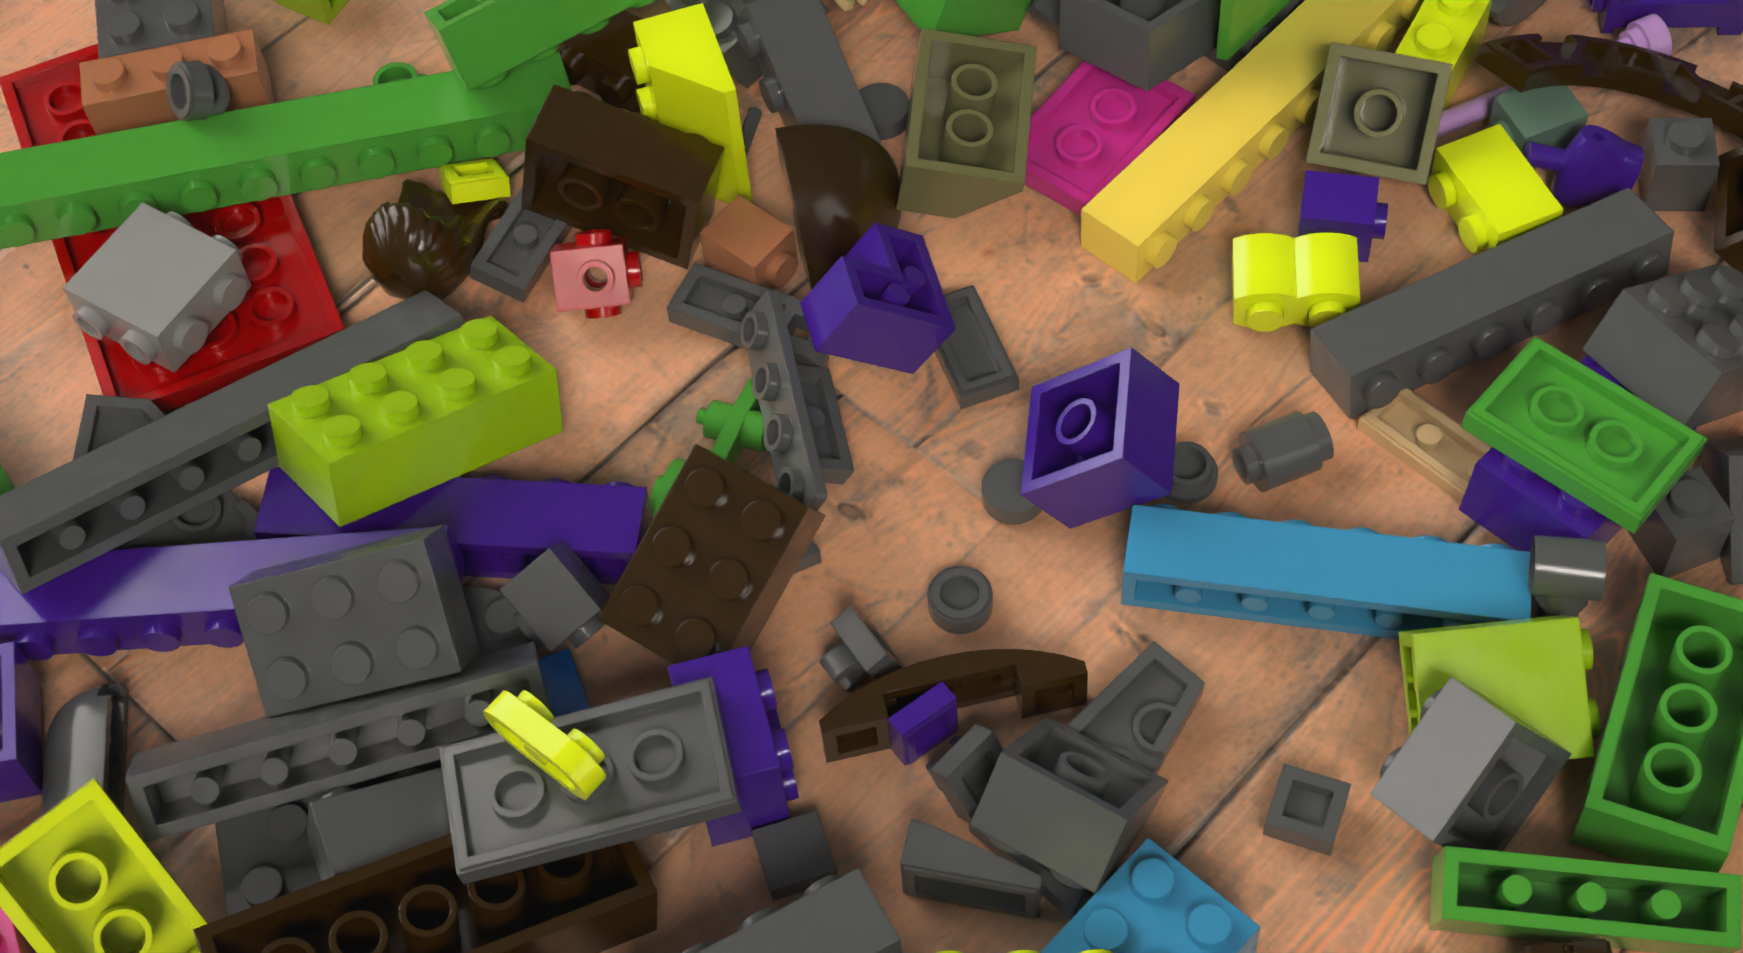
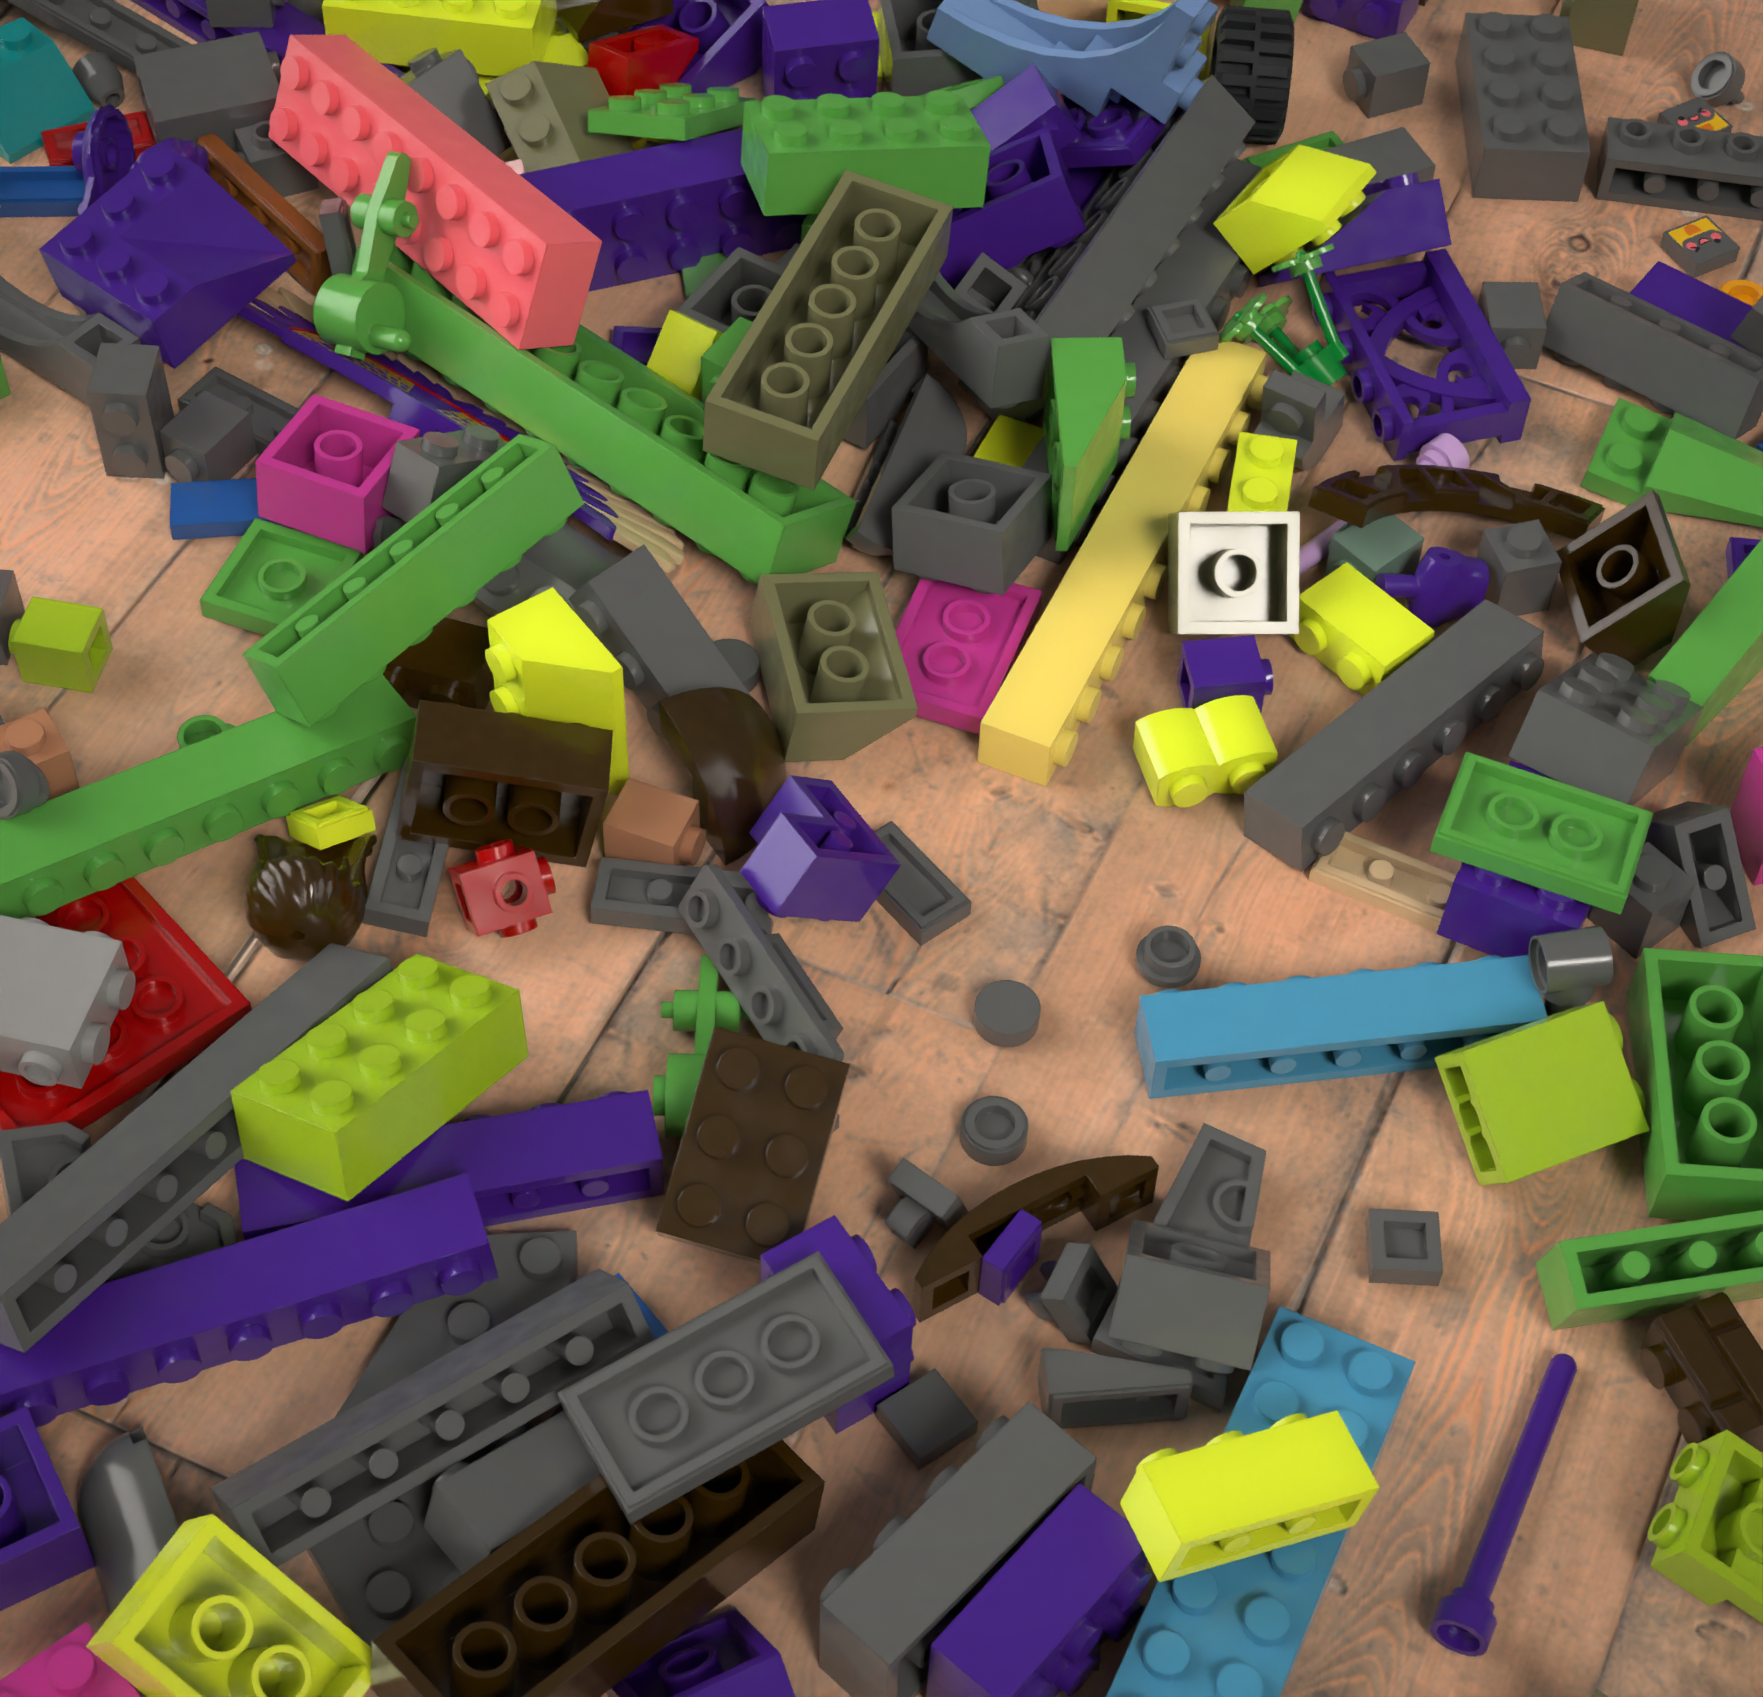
camera: 25 degrees left, 5 degrees down
(355, 621) = (411, 1290): dark grey brick -> none
(528, 728) = (702, 1363): neon yellow plate -> none
(557, 599) = (599, 1223): dark grey brick -> none
(1101, 439) = (1087, 940): dark purple brick -> none
(1282, 450) = (1254, 914): dark grey brick -> none
(1468, 771) = (1549, 1165): slope -> none

